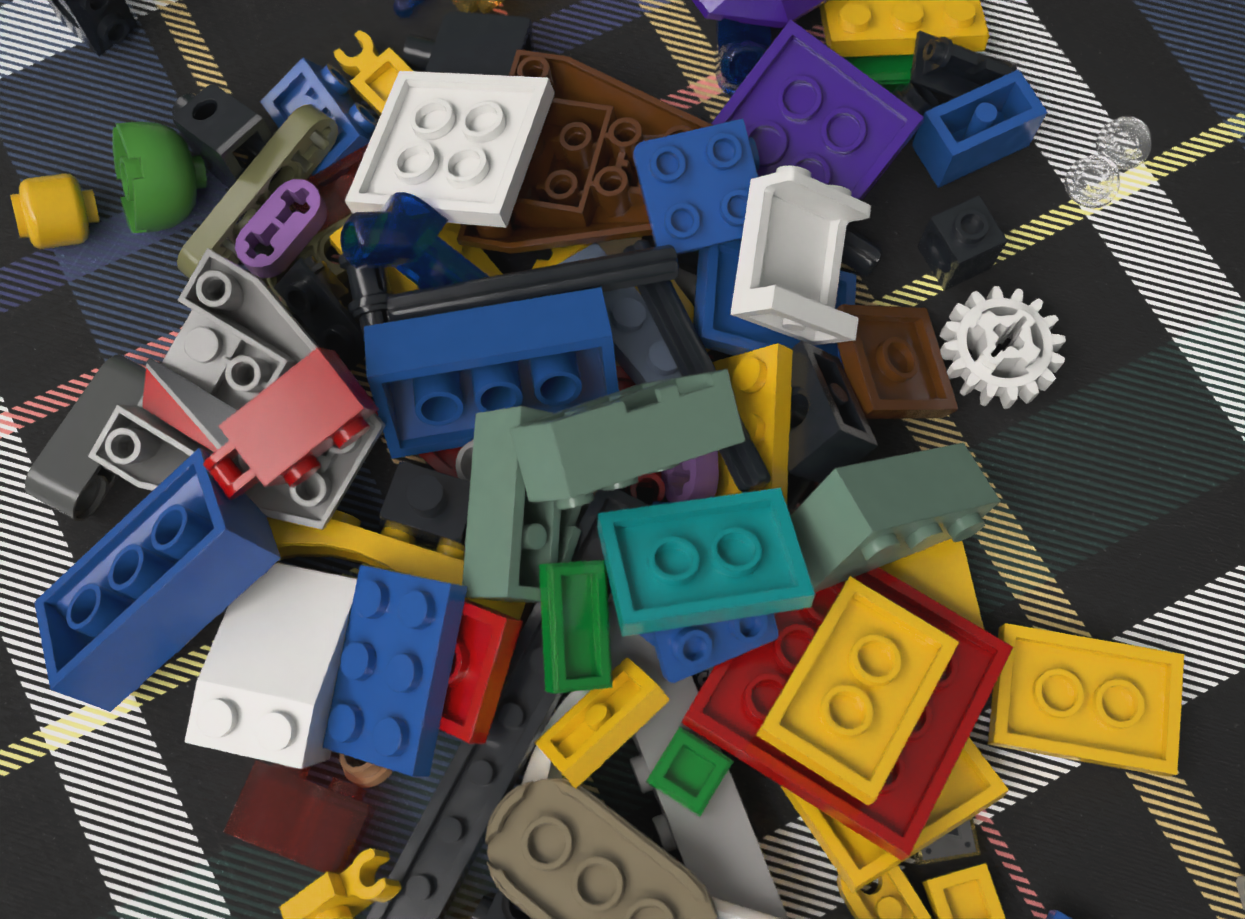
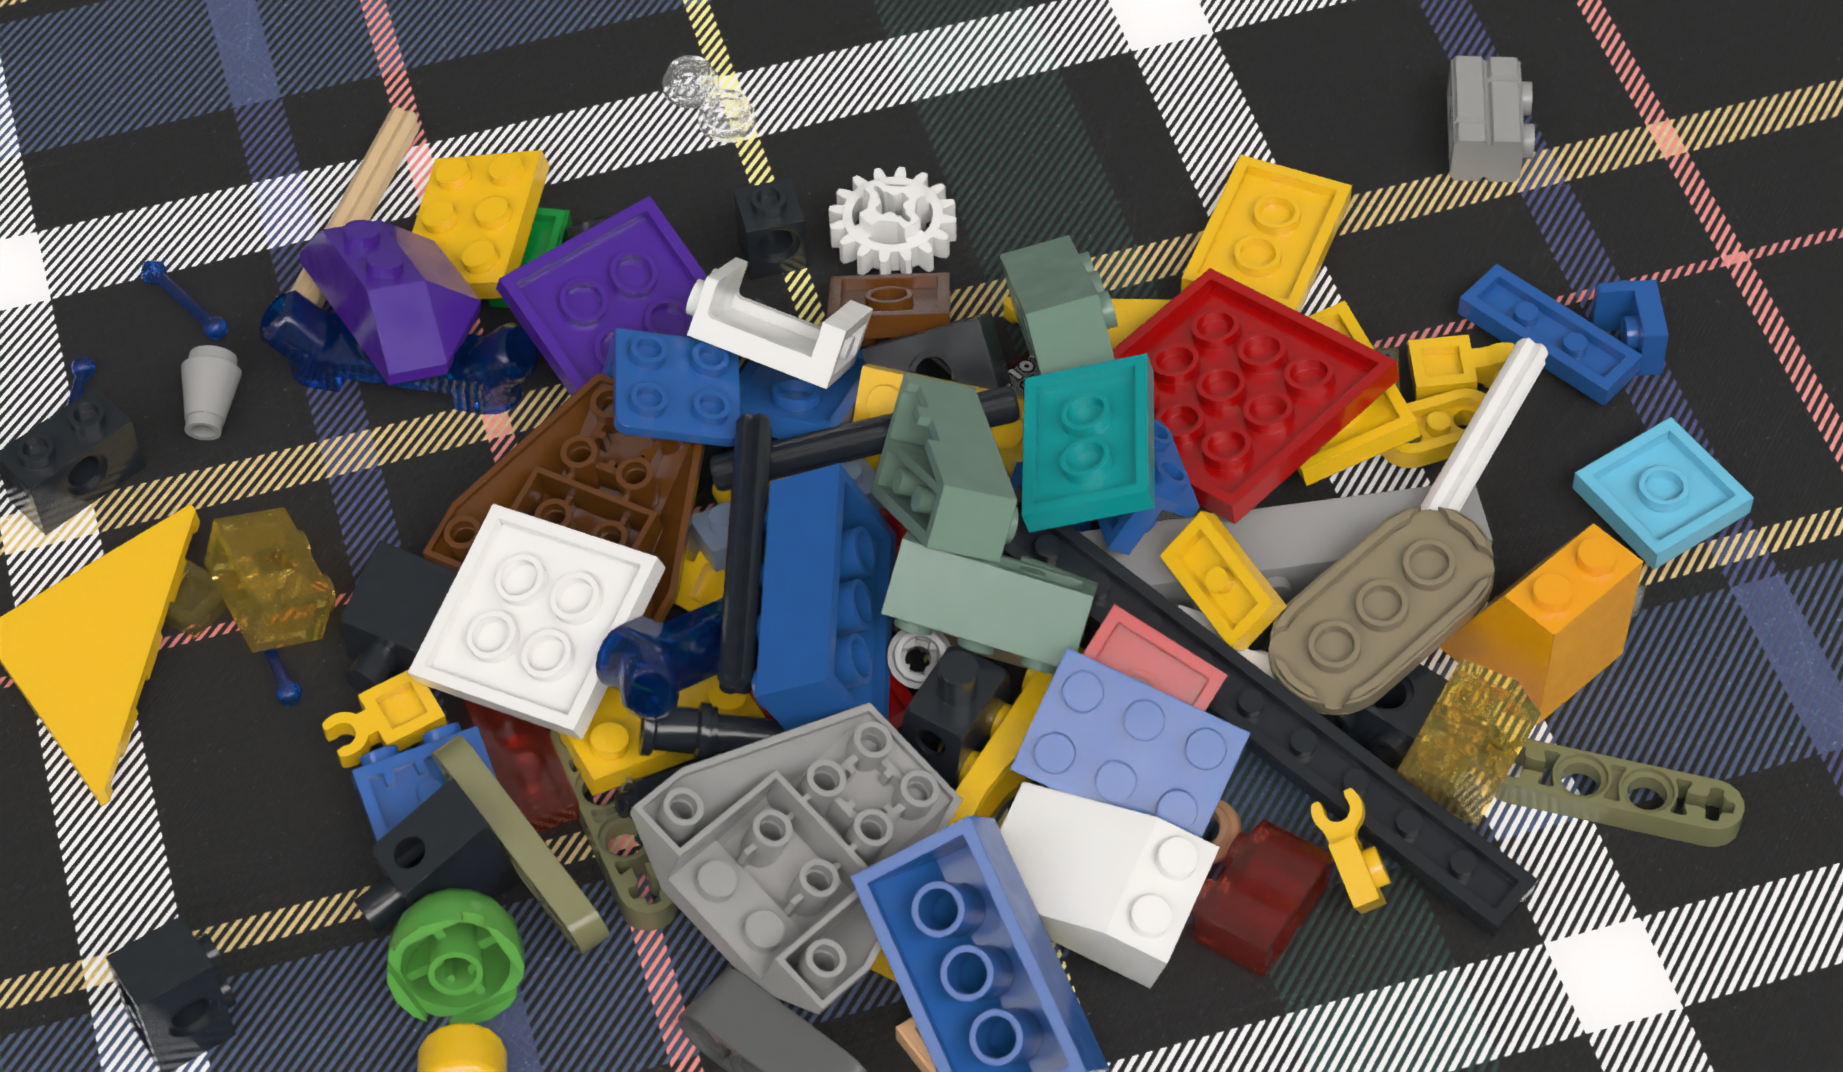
camera: 75 degrees left, 20 degrees down
(185, 406) = (797, 893): sticker -> none
(281, 228) = (580, 814): medium lavender beam -> none
(292, 425) = (861, 756): brick -> none
(575, 626) = (1127, 567): green tile -> none
(689, 771) = (1283, 530): green tile -> none
(858, 690) = (1238, 367): yellow plate -> none
(952, 68) = (573, 184): black hinge -> none
(978, 128) = (646, 166): blue brick -> none

